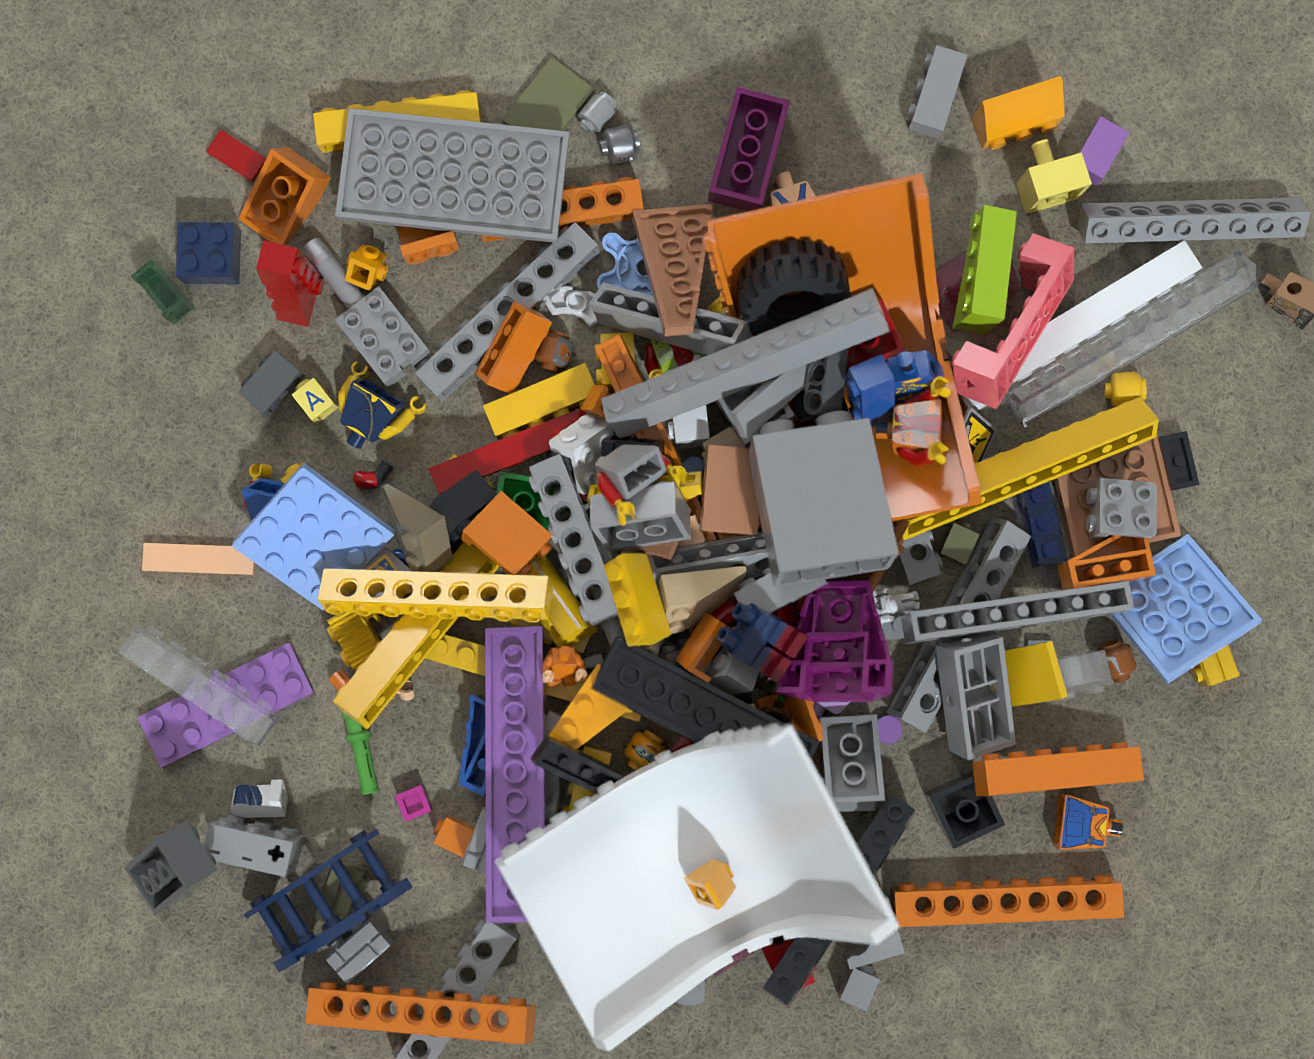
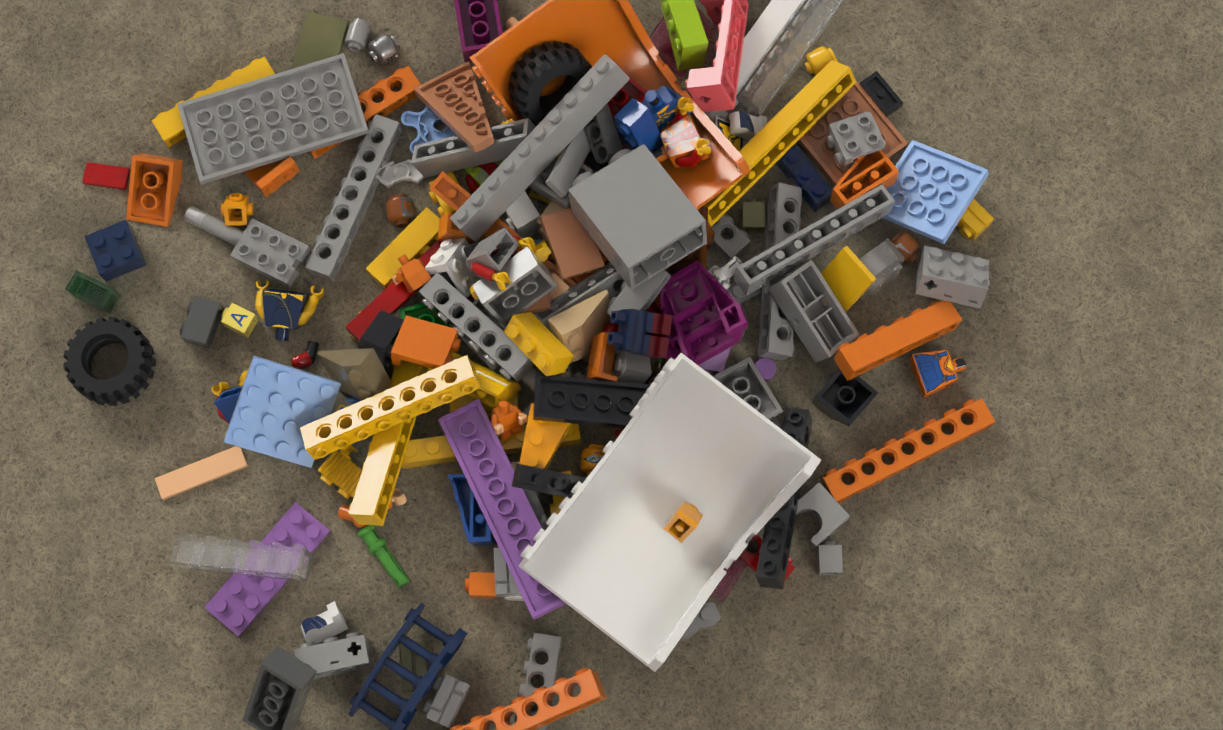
camera: 20 degrees left, 10 degrees down
(119, 361) = (93, 339): none -> black tyre
(289, 282) = (187, 239): red wedge -> none
(413, 802) = (440, 576): dark pink plate -> none
(513, 348) = (370, 218): orange brick -> none
(531, 440) = (411, 274): none -> orange piece
(1002, 431) = (746, 125): none -> white leg
(1157, 725) = (952, 277): none -> light grey piece

